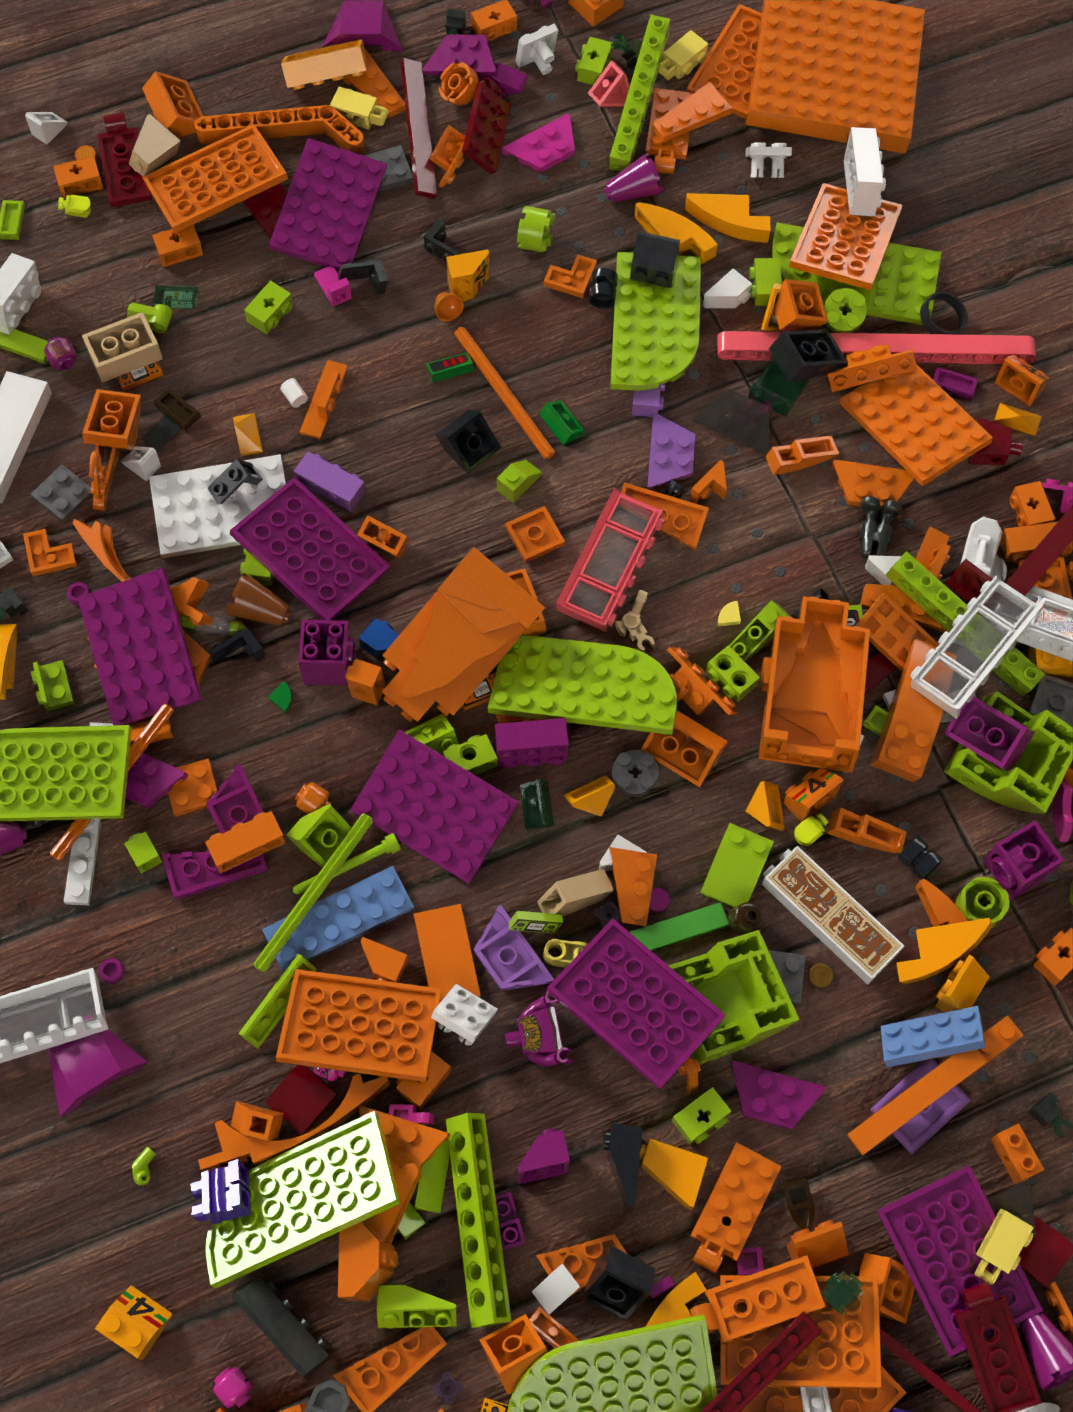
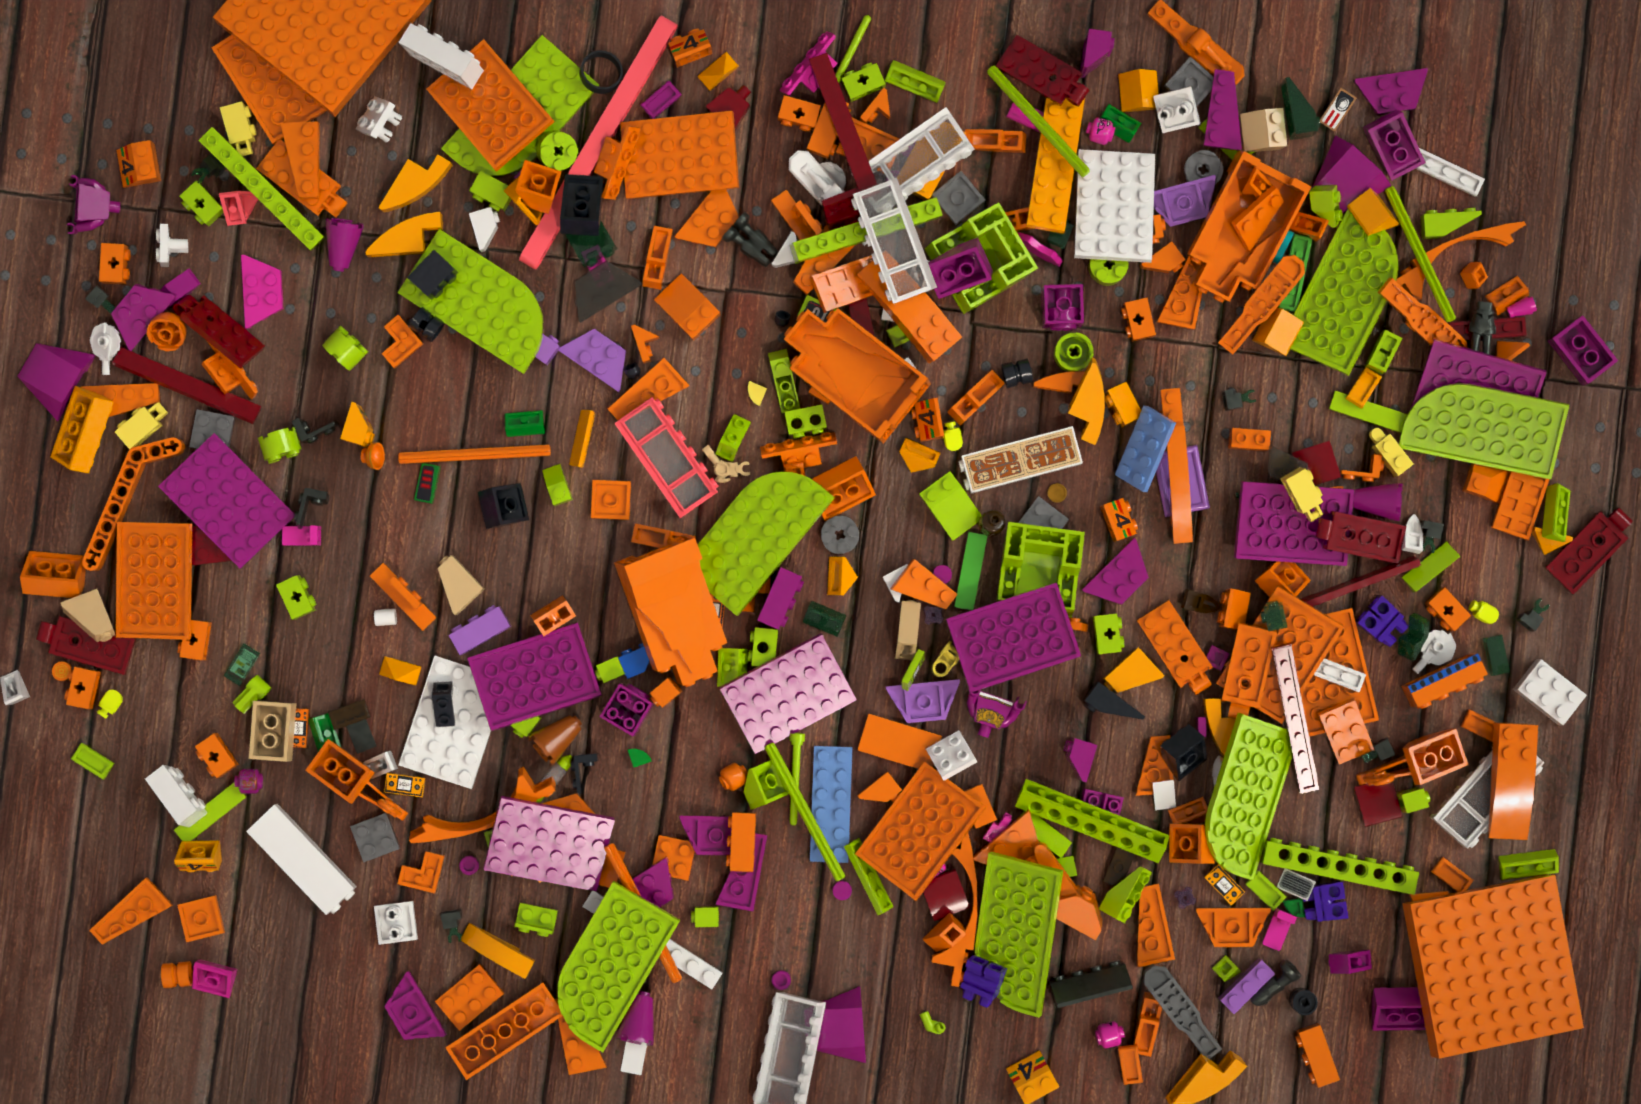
camera: 55 degrees left, 20 degrees up
(71, 315) = (225, 760): none -> orange brick
(131, 493) = (404, 785): none -> tile
(149, 394) = (323, 730): none -> green slope
(247, 982) = (842, 890): none -> magenta tile
(358, 618) = (609, 670): none -> lime brick
(364, 440) = (458, 584): none -> tan slope
(409, 220) = (280, 444): none -> lime brick
(414, 48) = (105, 344): none -> white piece
(580, 480) = (582, 438): none -> light orange slope
(668, 611) = (732, 437): none -> lime bracket
(771, 508) = (687, 307): none -> orange slope
(835, 1055) = (1118, 519): none -> orange slope

